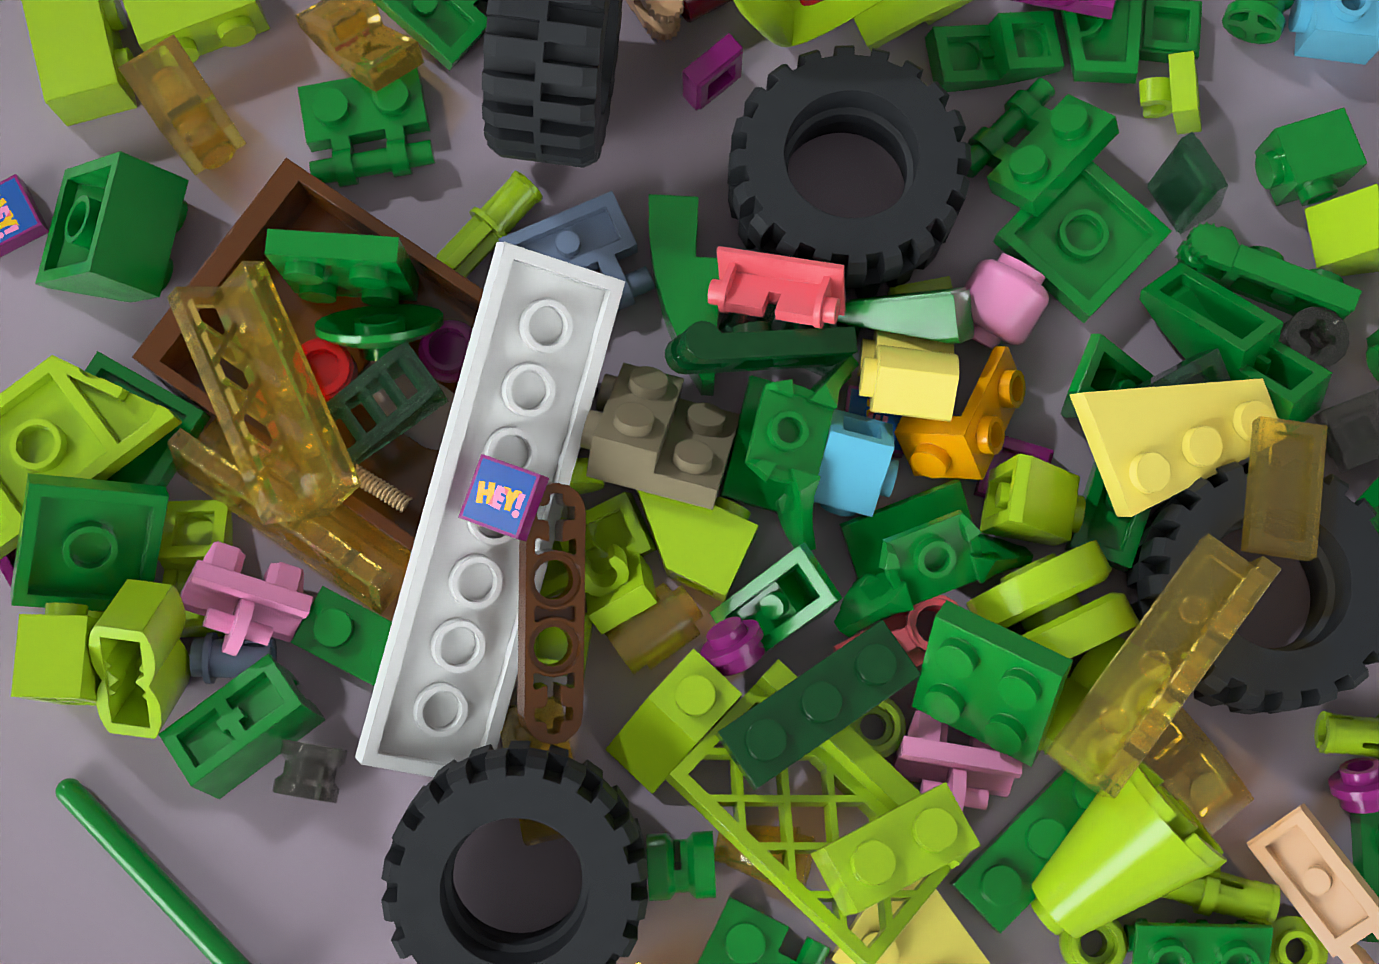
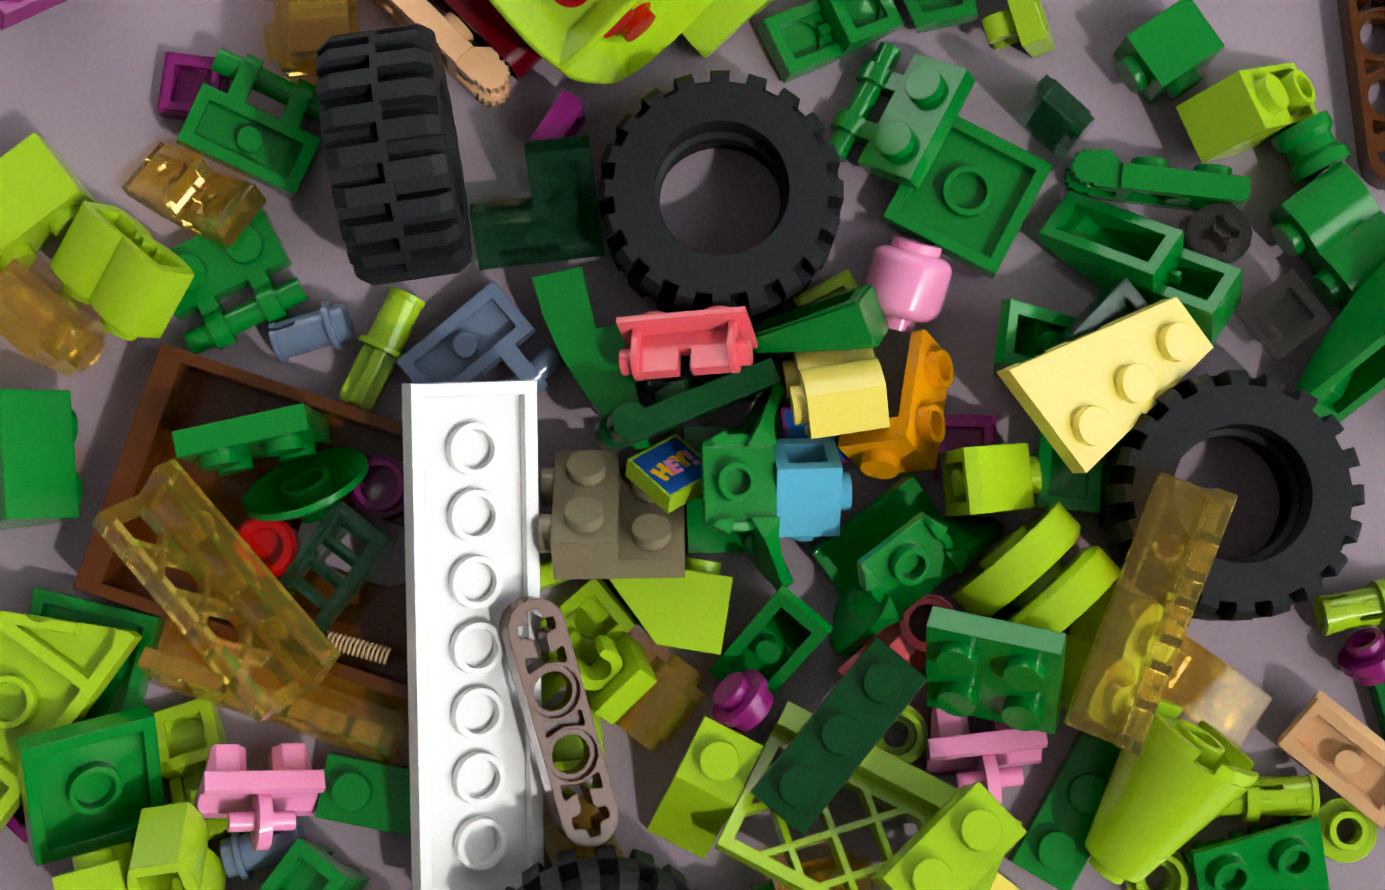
camera: 15 degrees left, 5 degrees up
(269, 86) = (120, 272): none -> lime brick
(429, 192) = (312, 331): none -> sand blue pin
(503, 497) = (482, 630): tile -> none
(689, 152) = (554, 222): none -> clear green plate
(723, 409) = (667, 473): none -> tile
(1284, 488) = (1223, 404): clear yellow tile -> none

